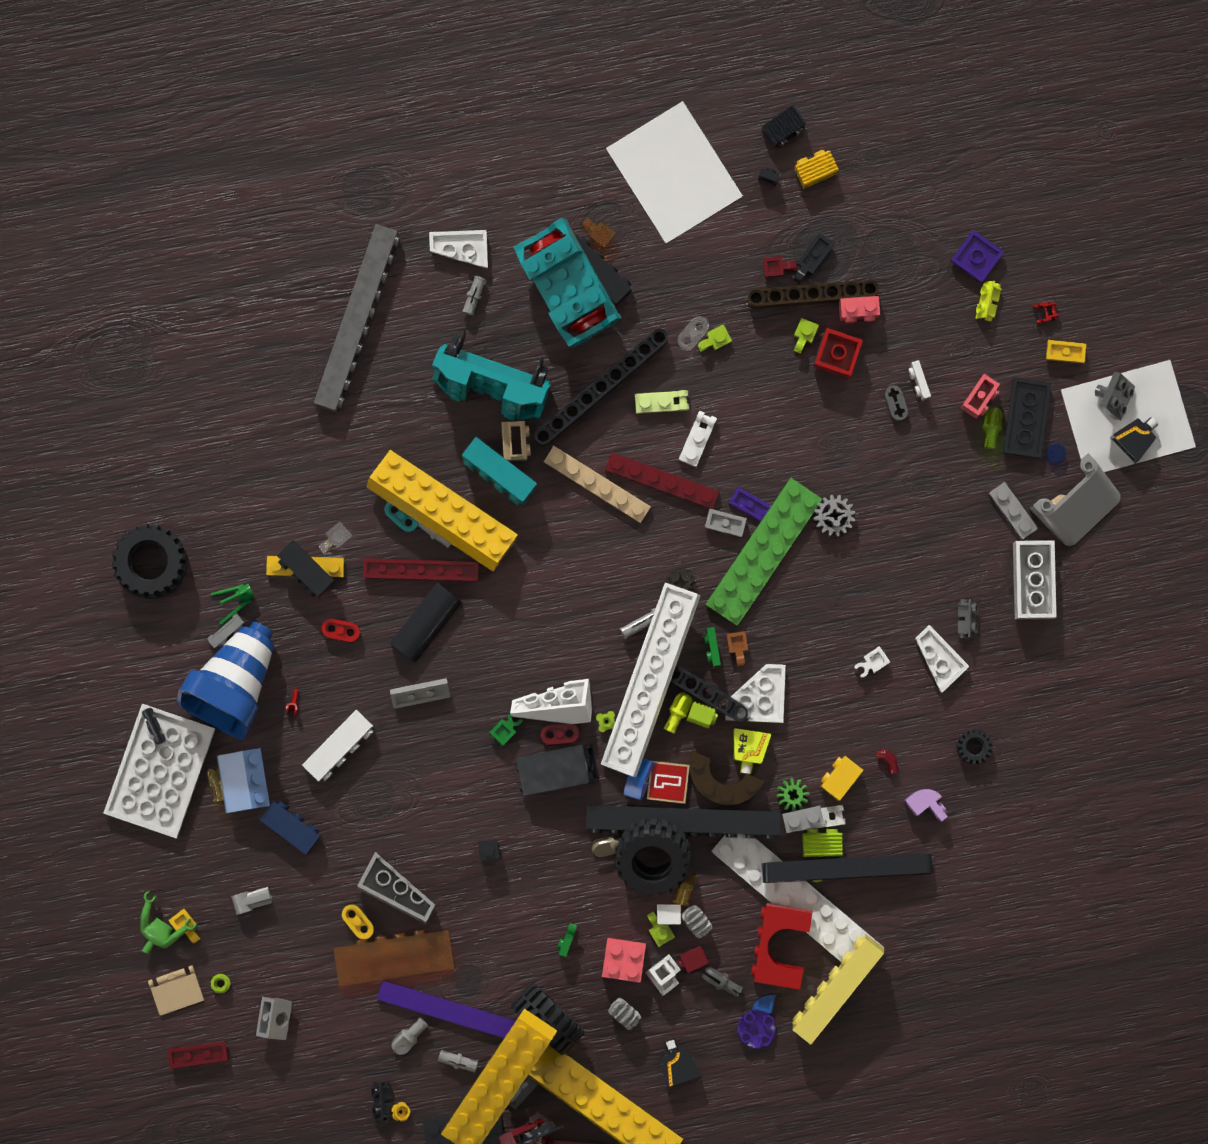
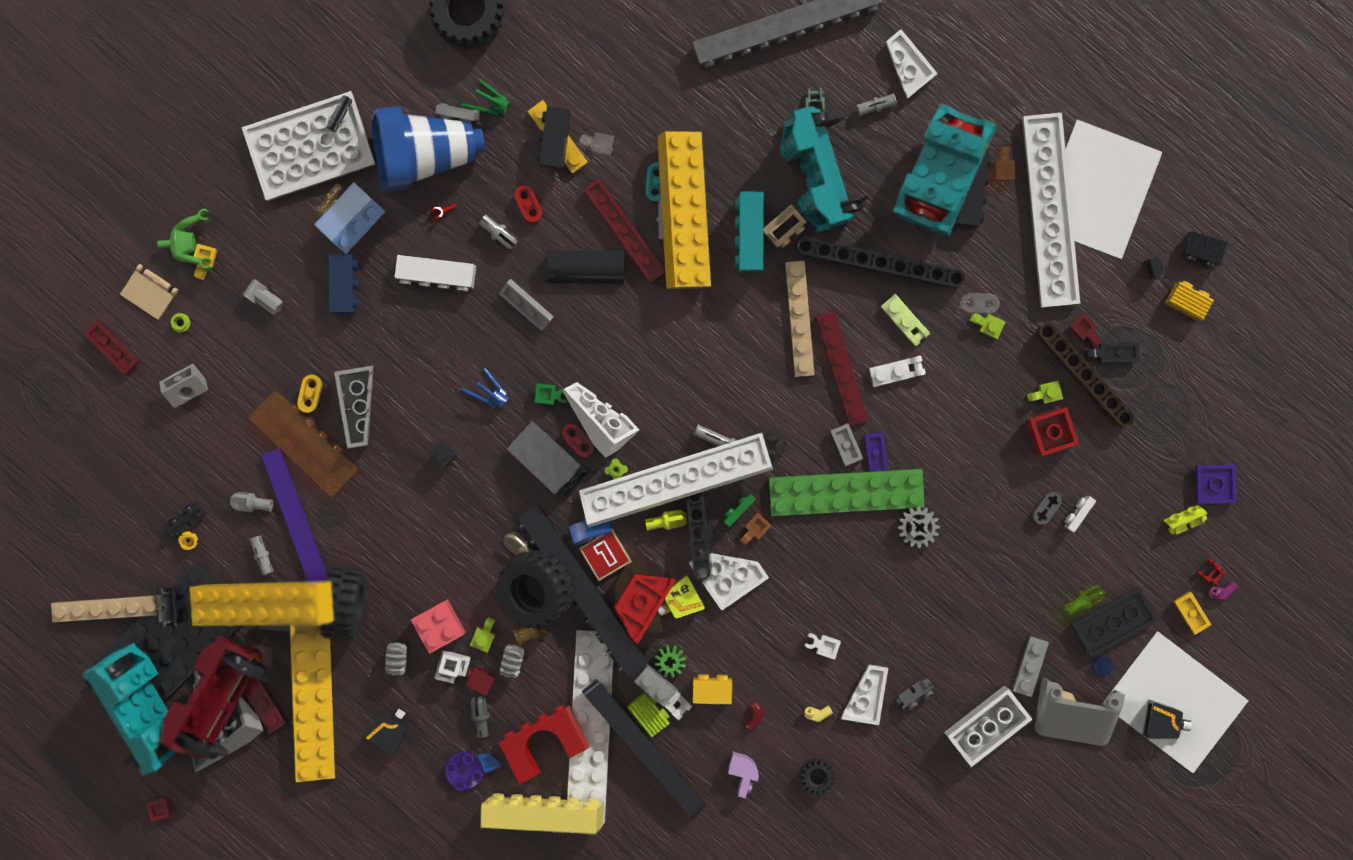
camera: 55 degrees right, 5 degrees up
(341, 672) = (496, 230): none -> light grey arm
(437, 336) = (821, 100): none -> sand green piece
(477, 773) = (497, 398): none -> blue plant
(564, 944) = (415, 569): green plate -> none
(662, 222) = (1051, 210): none -> white plate
(668, 913) = (501, 634): white panel -> none
(702, 715) = (677, 542): lime brick -> none
(727, 779) = (641, 602): none -> red wing
(859, 309) = (1101, 421): coral brick -> none
(924, 710) = (817, 715): none -> light yellow arm
(980, 395) = (1104, 571): coral brick -> none
(1069, 315) = (1223, 593): none -> magenta arm
(1116, 395) = (1187, 680): dark grey plate -> none

